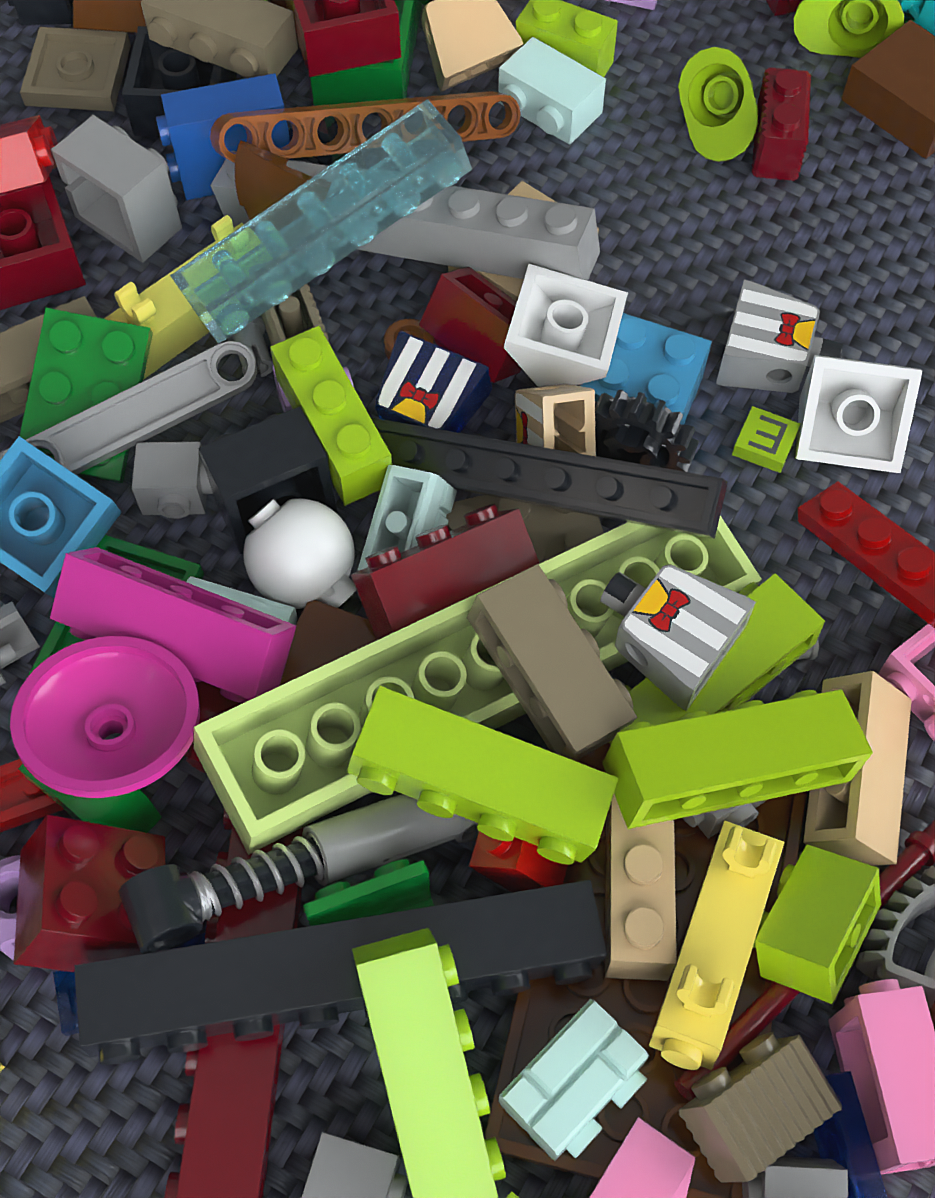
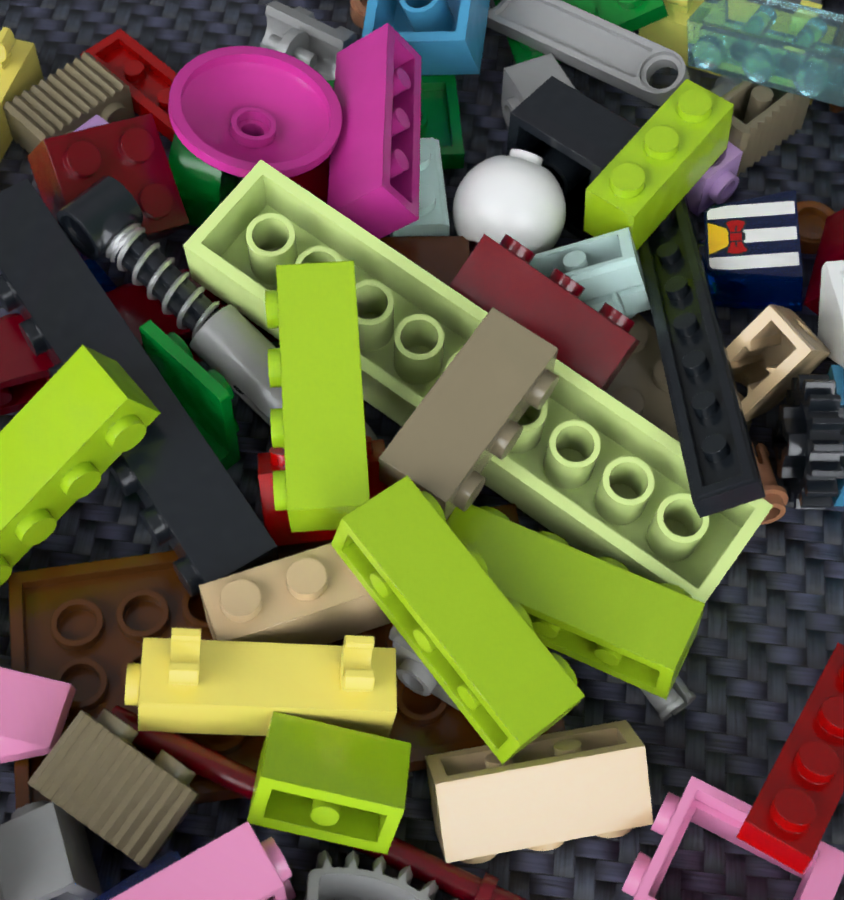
camera: 65 degrees right, 5 degrees down
(574, 1081) = (82, 613): light aqua brick -> none
(676, 628) = (572, 519): torso -> none

